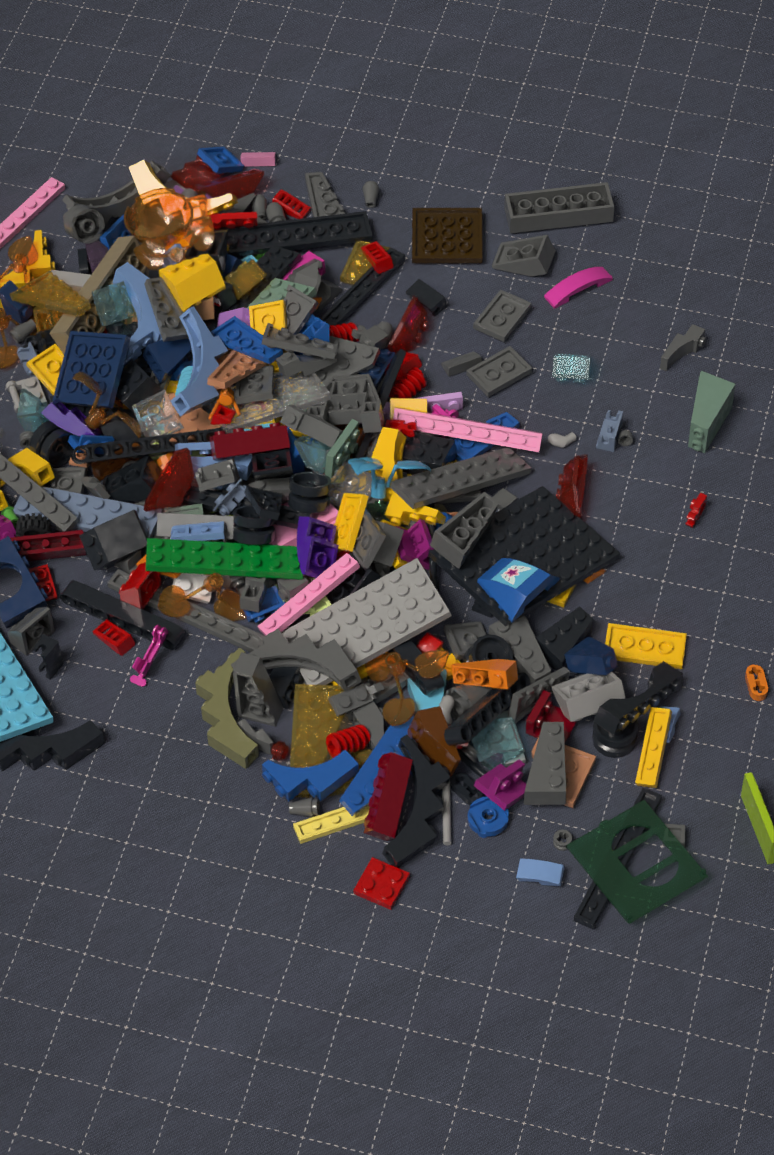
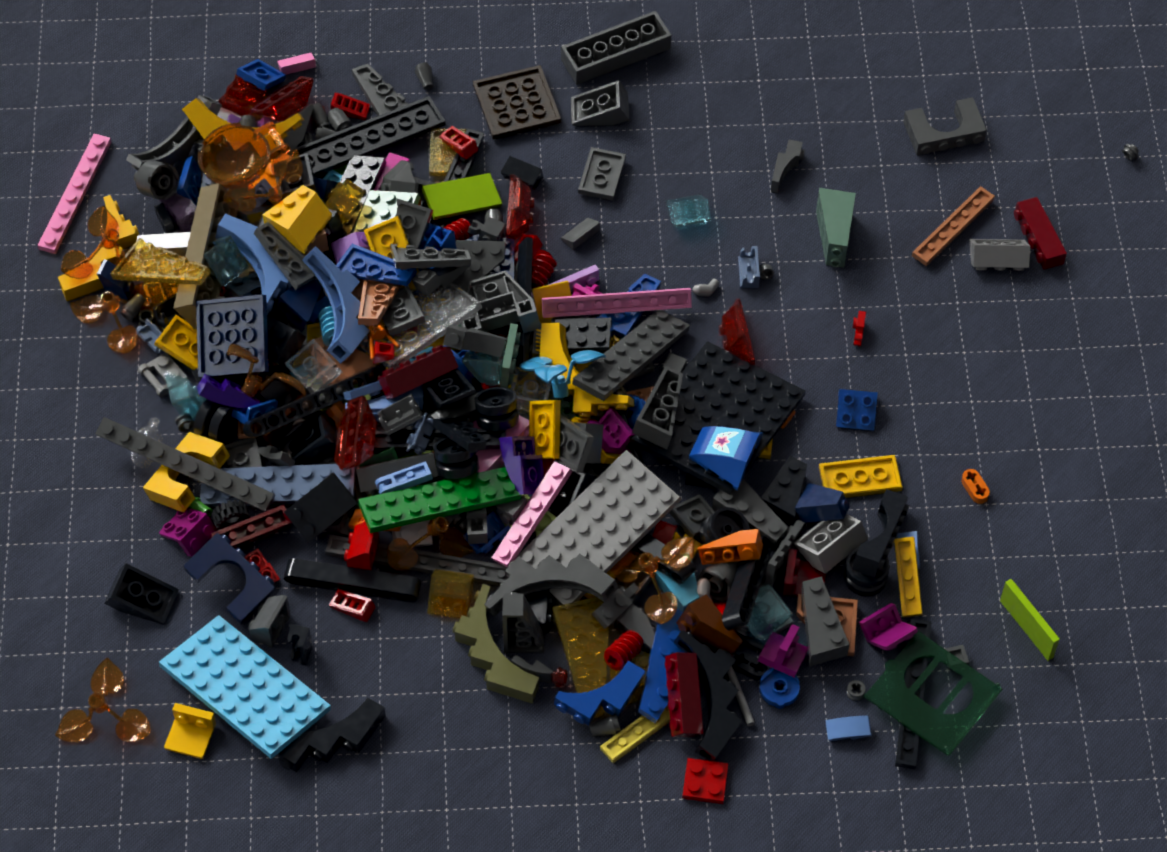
camera: 20 degrees left, 5 degrees up
(142, 666) = (395, 625): dark pink piece -> none
(206, 648) = (450, 593): none -> clear yellow slope
(231, 220) = (304, 138): red hinge -> none
(360, 304) = (461, 196): none -> lime tile
(406, 429) = (554, 317): red plate -> none
(499, 371) = (620, 233): dark grey plate -> none
(575, 283) = (660, 124): dark pink slope -> none
(613, 788) = (886, 628): none -> magenta bracket
(664, 582) = (856, 409): none -> blue bracket

